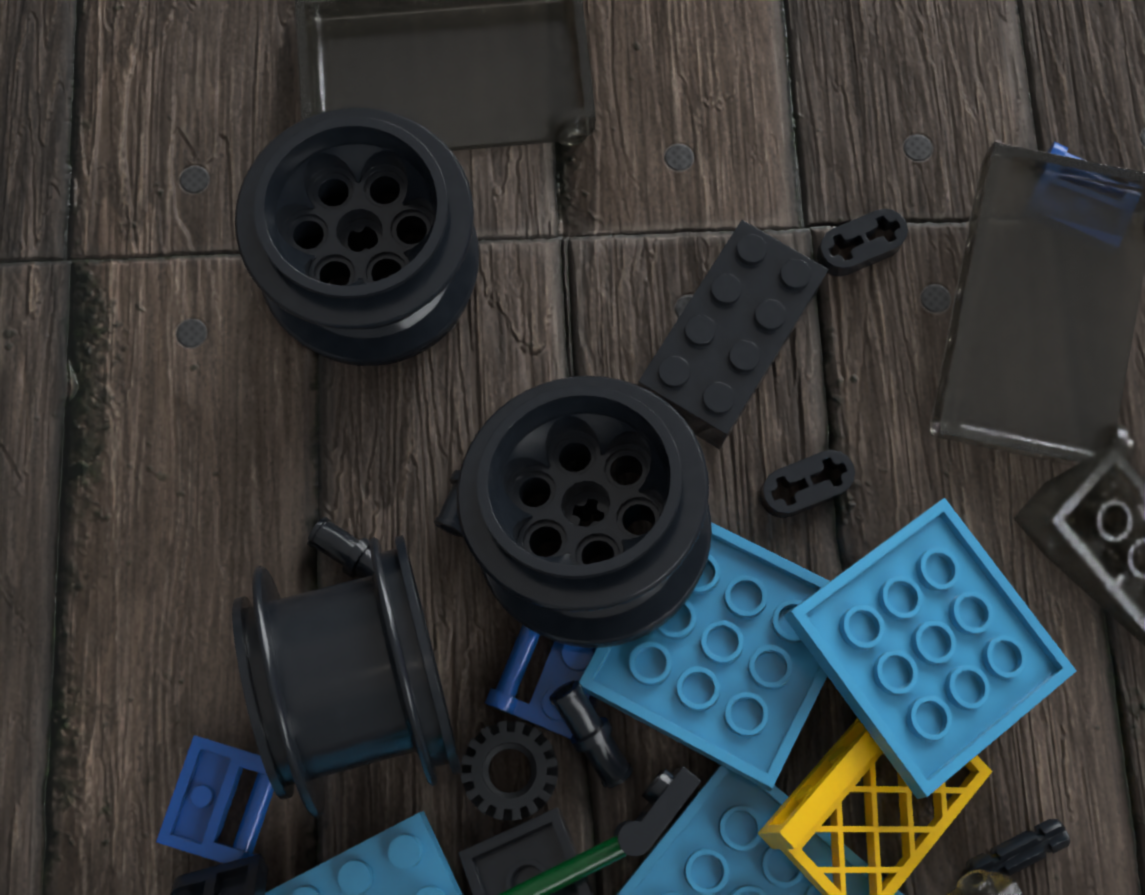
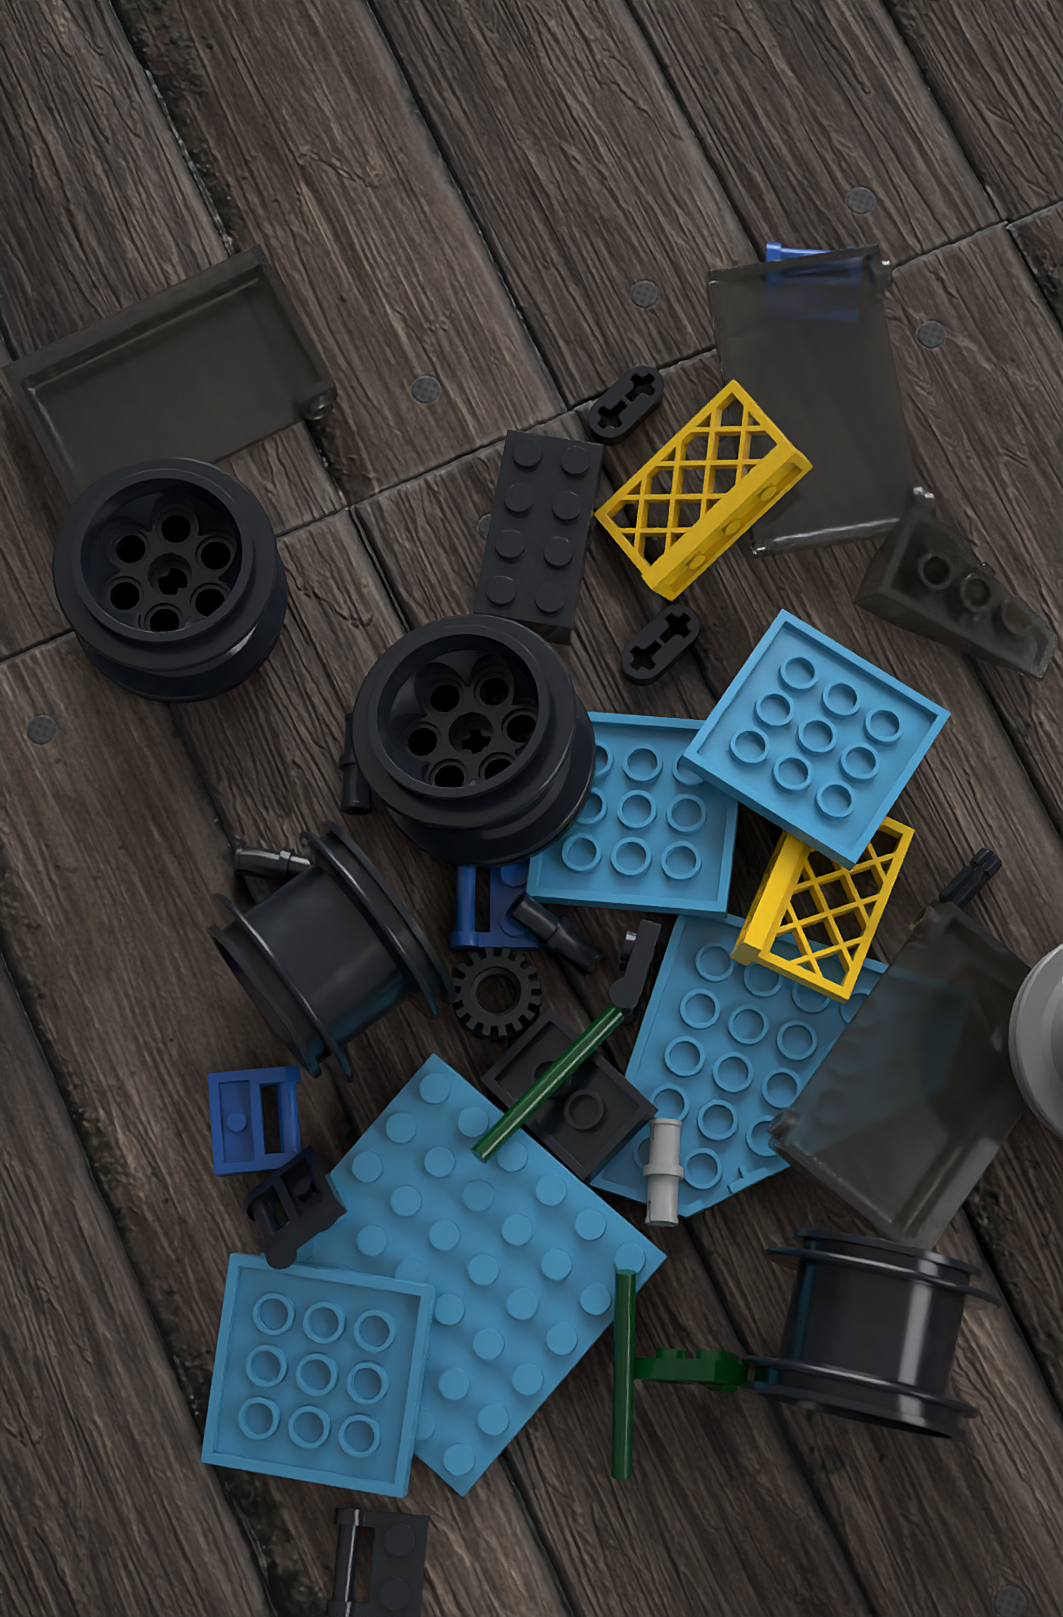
camera: 15 degrees left, 0 degrees up
(933, 381) = (728, 518): none -> yellow fence

